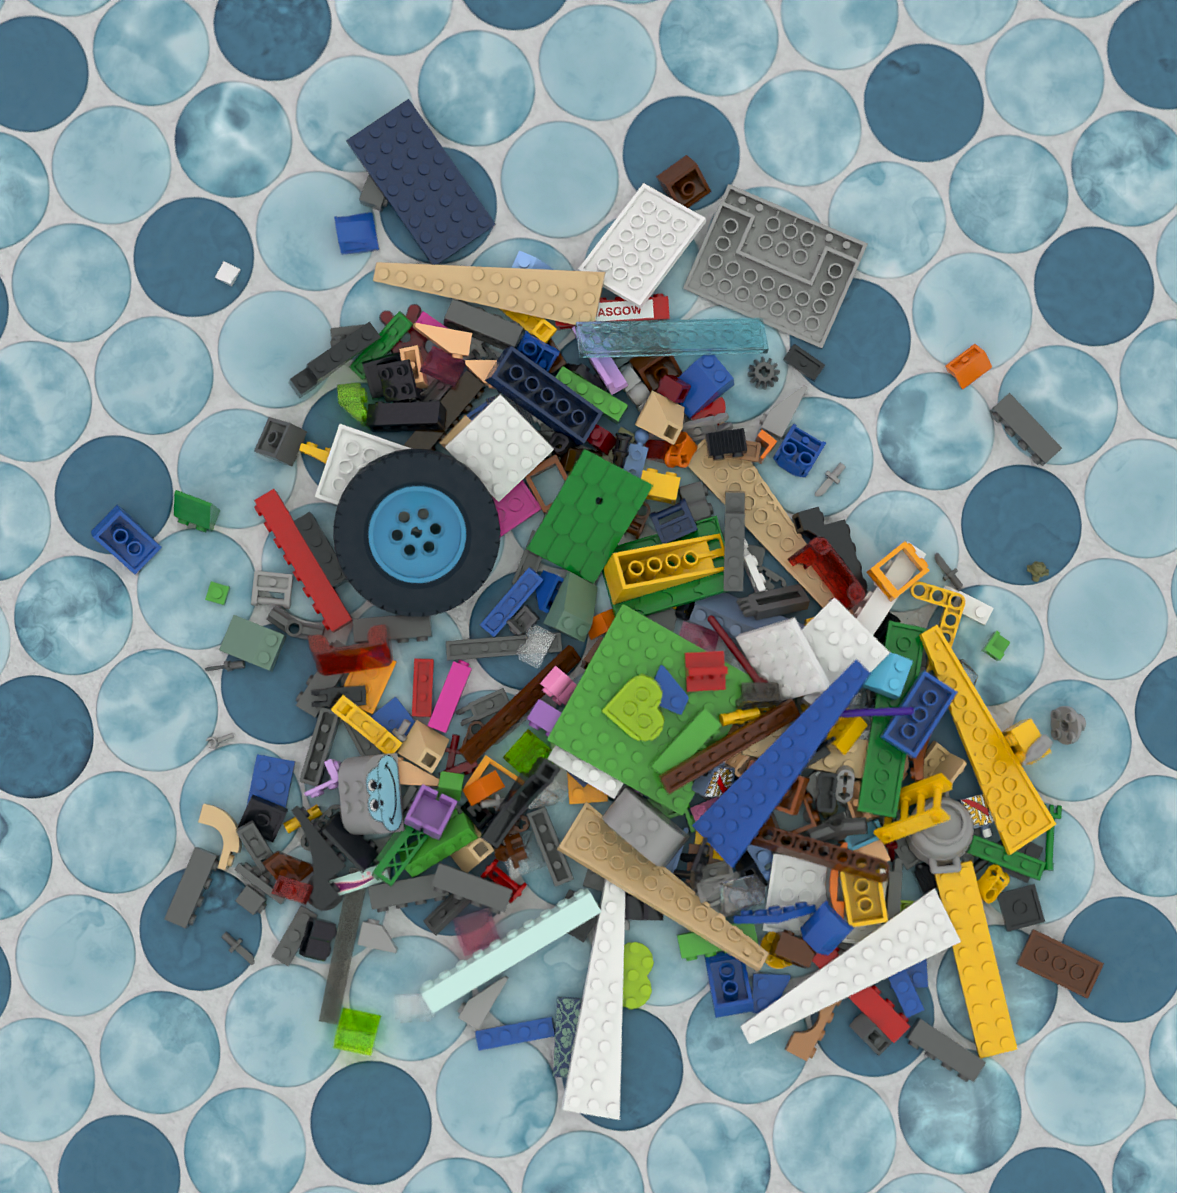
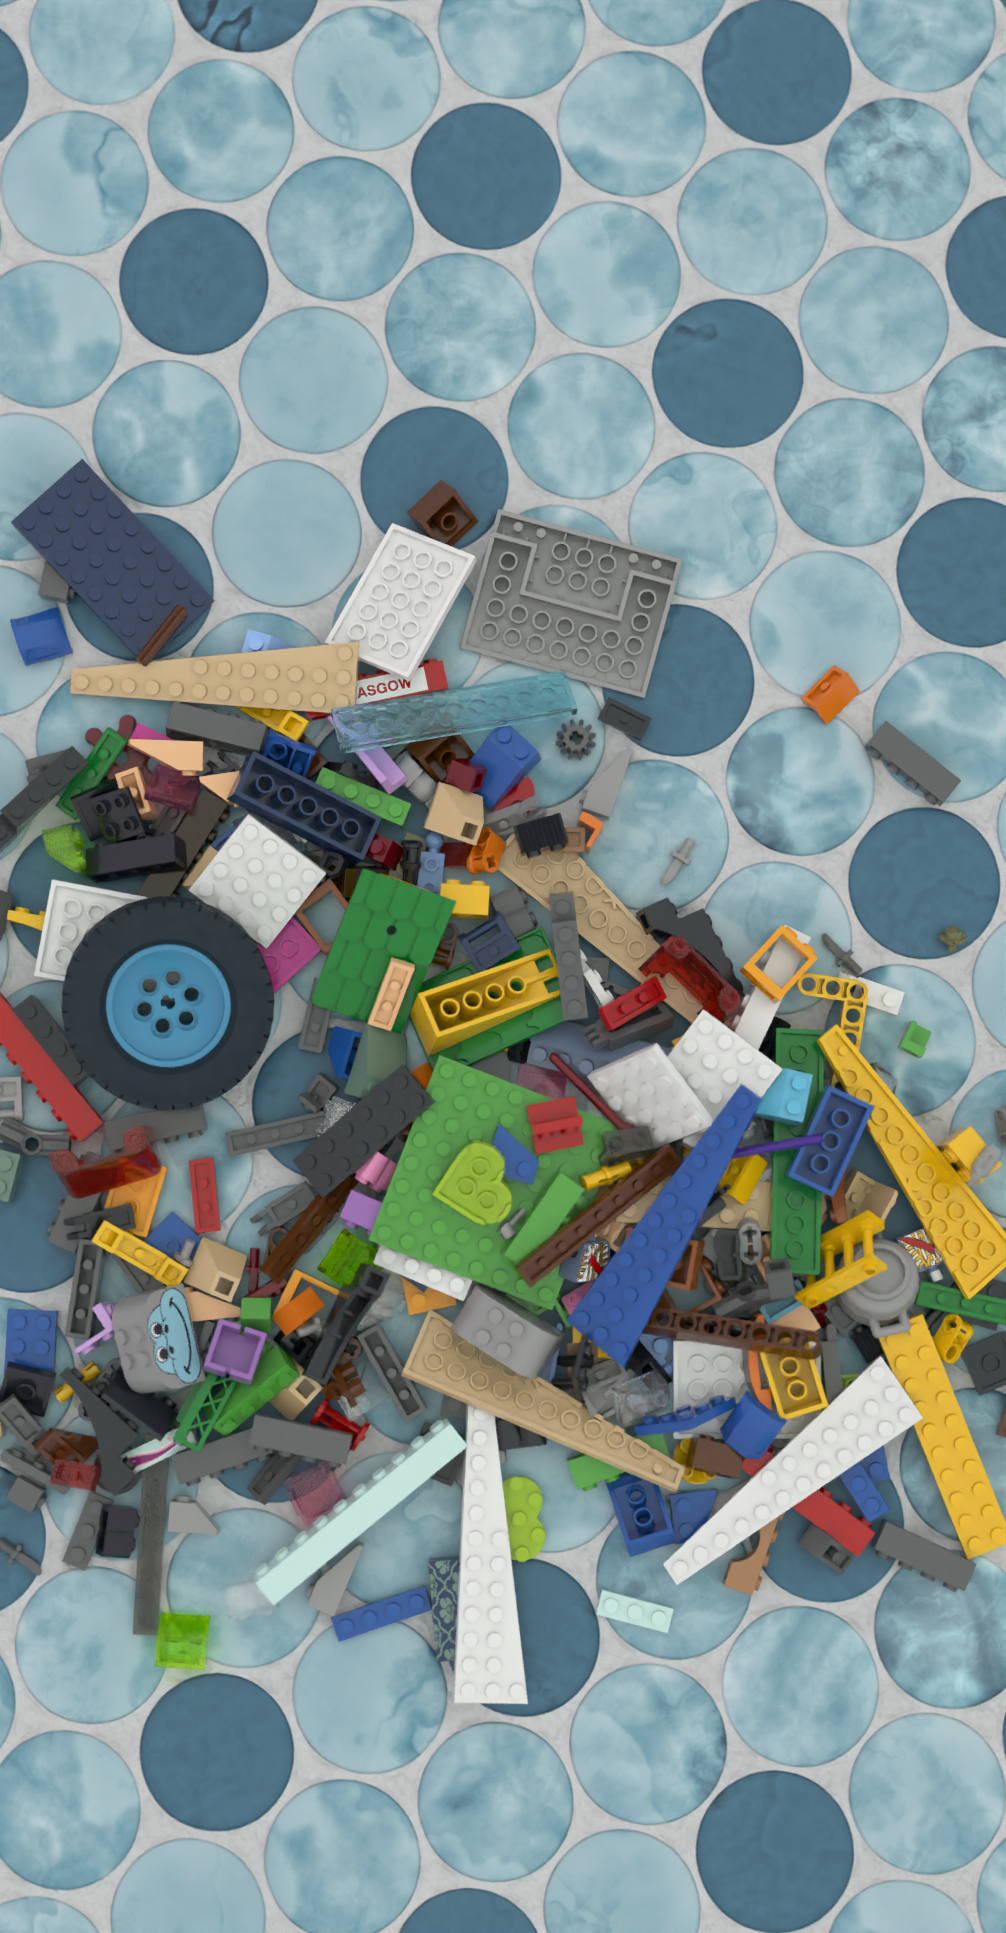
camera: 10 degrees left, 0 degrees up
(450, 696) = (240, 1201): dark pink brick -> none
(451, 245) = (161, 635): none -> reddish brown axle
(511, 601) = (300, 1071): blue plate -> none
(555, 654) = (363, 1131): none -> black plate
(591, 551) = (391, 994): none -> light nougat plate
(656, 746) = (506, 1229): none -> light grey hand
(712, 1060) = (634, 1611): none -> light aqua plate
(778, 585) = (631, 1003): none -> red plate
(798, 452) = (633, 832): blue slope -> none
(864, 816) = (779, 1278): none -> dark grey brick

